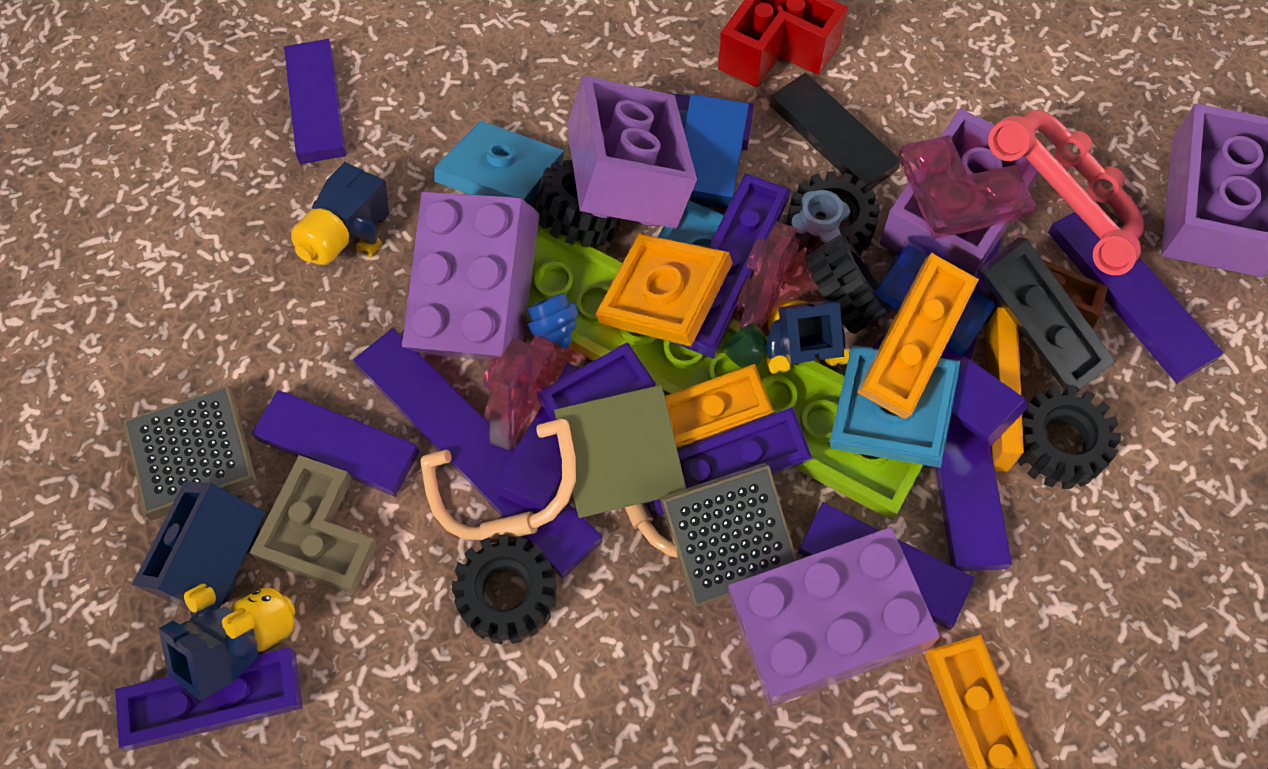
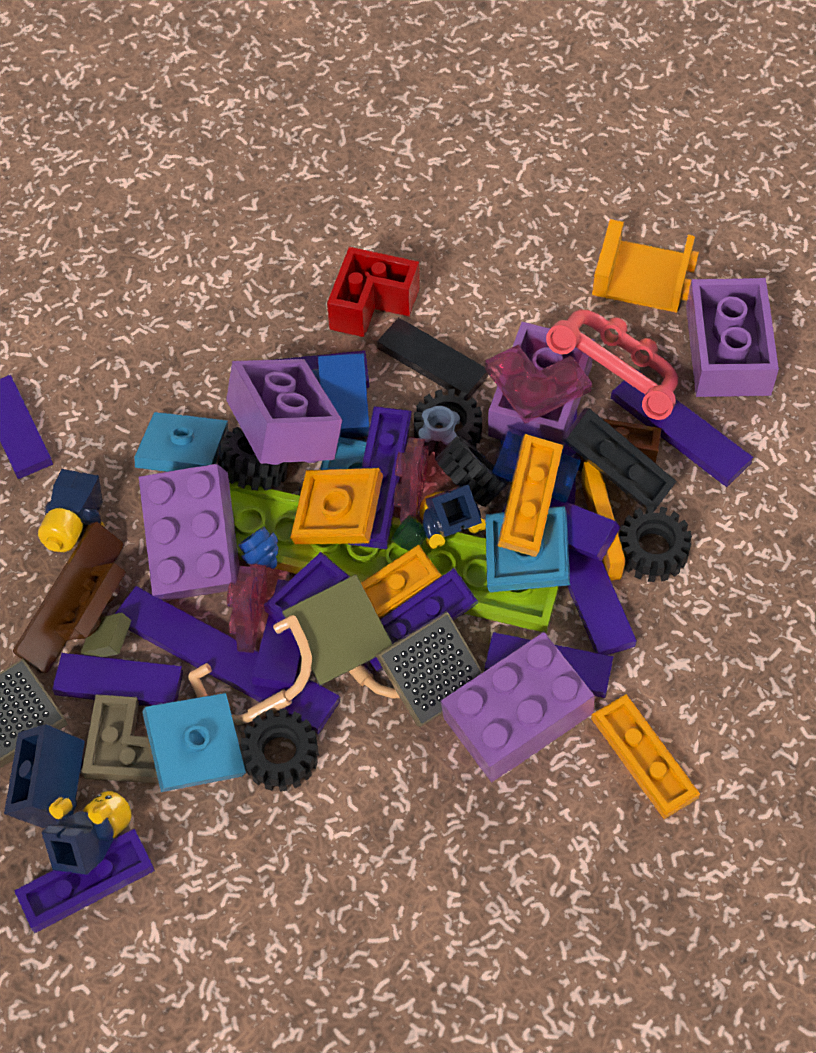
camera: 15 degrees left, 5 degrees down
(312, 326) = (75, 599): none -> reddish brown bracket
(337, 382) = (108, 637): none -> olive tile
(397, 551) = (193, 742): none -> dark azure plate
(1128, 86) = (643, 272): none -> light orange panel

